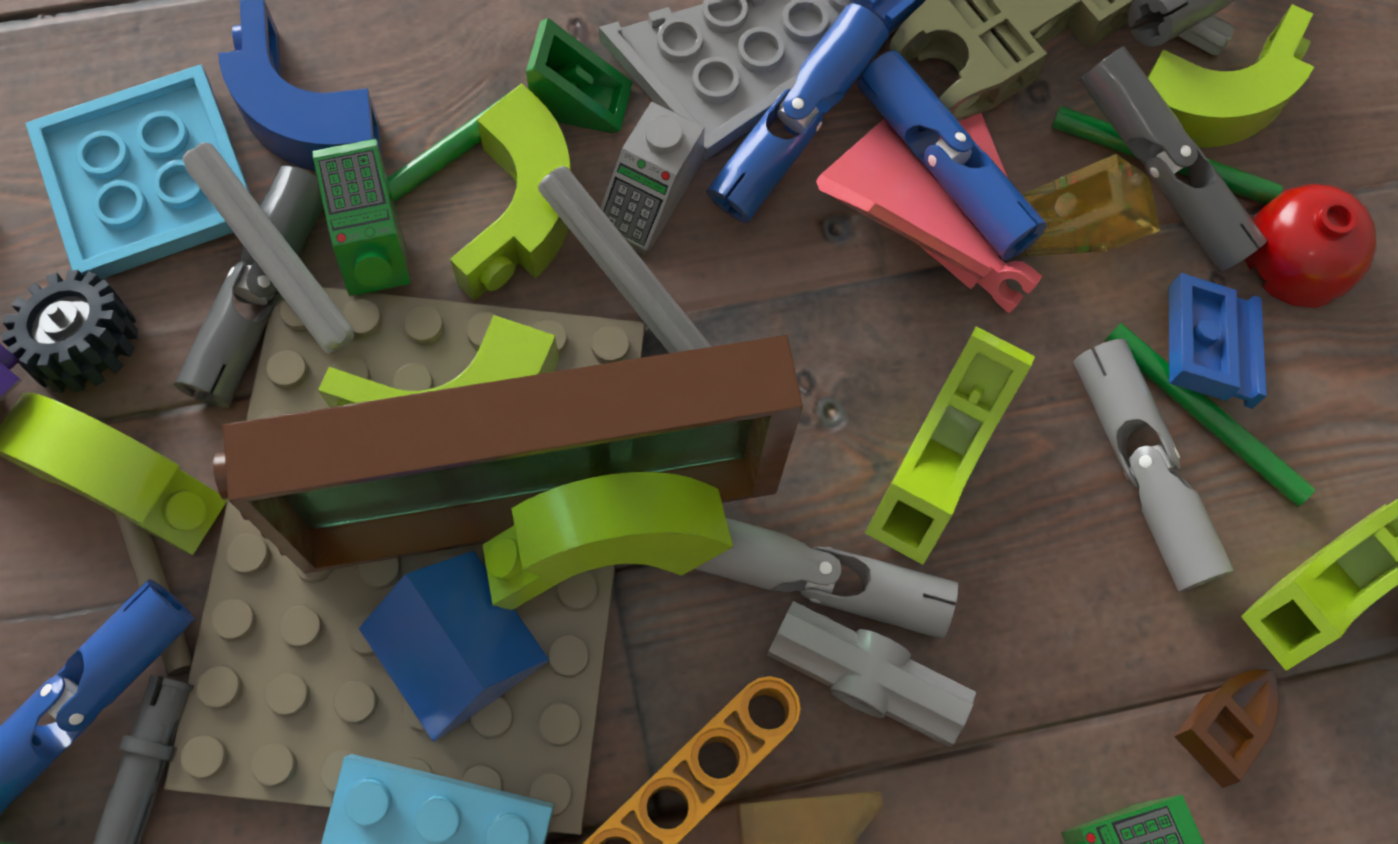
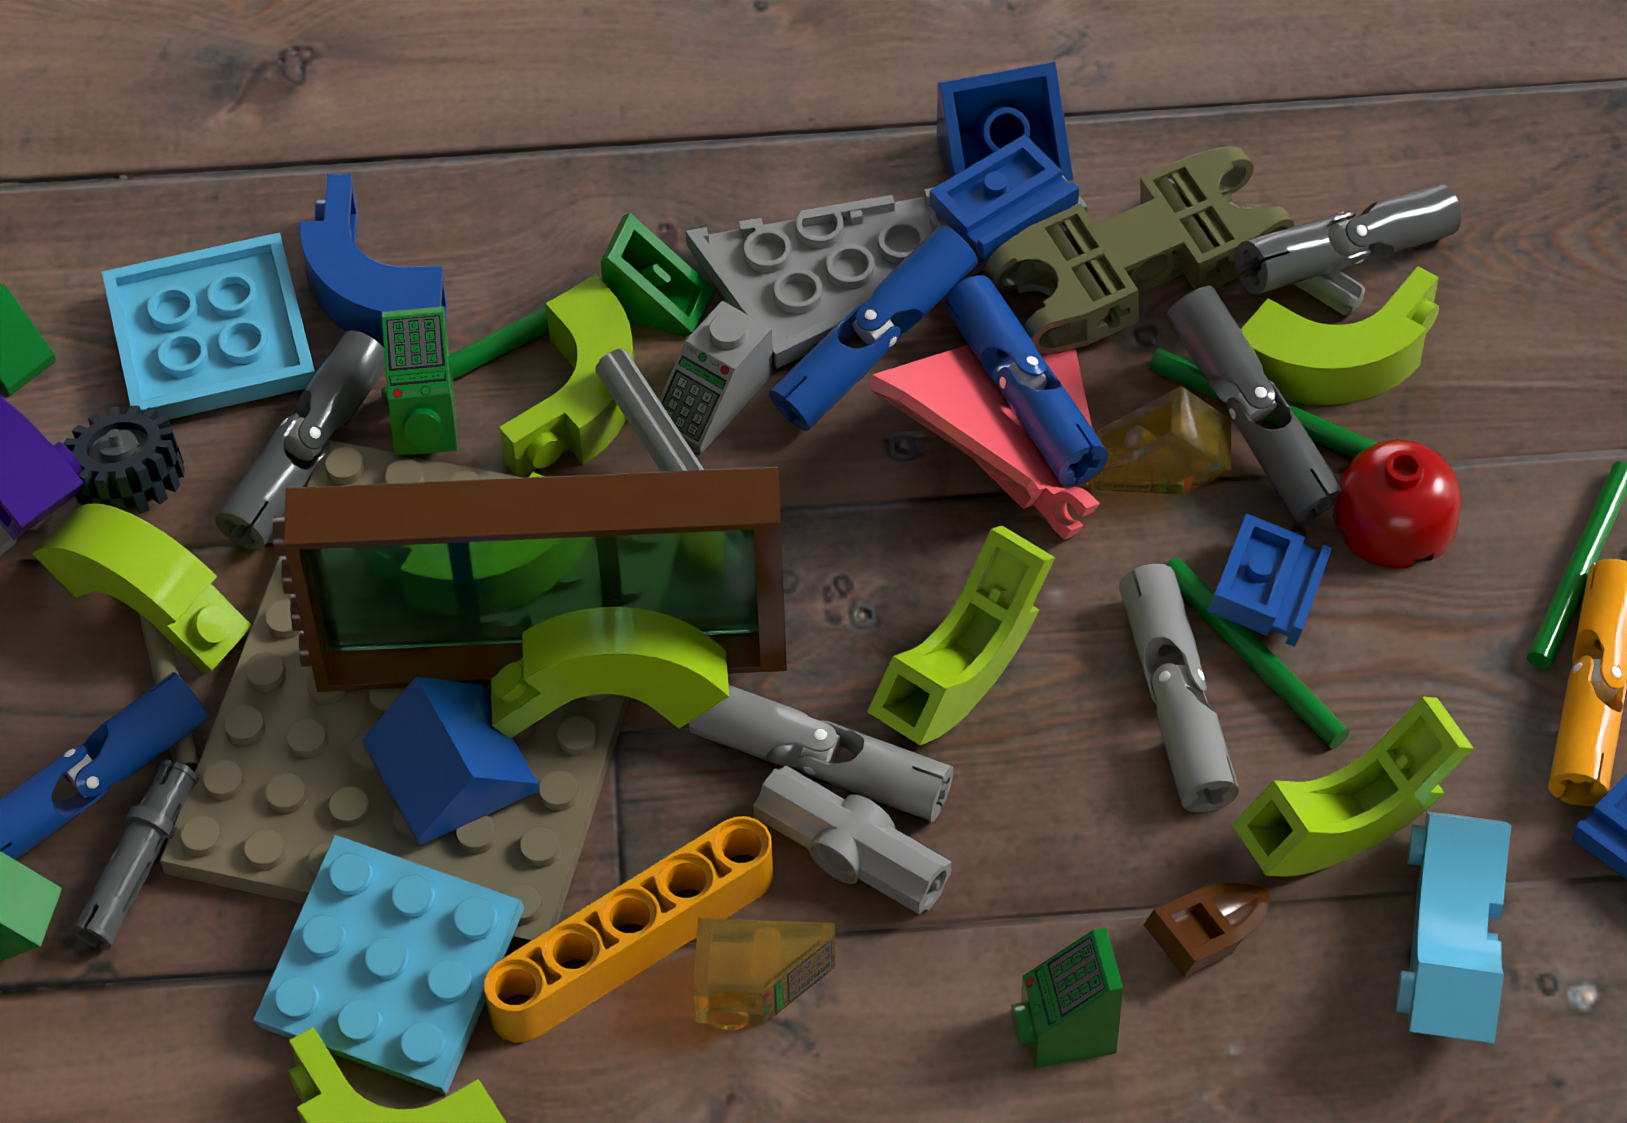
camera: 15 degrees right, 15 degrees down
(268, 248) = (322, 394): light grey axle -> none

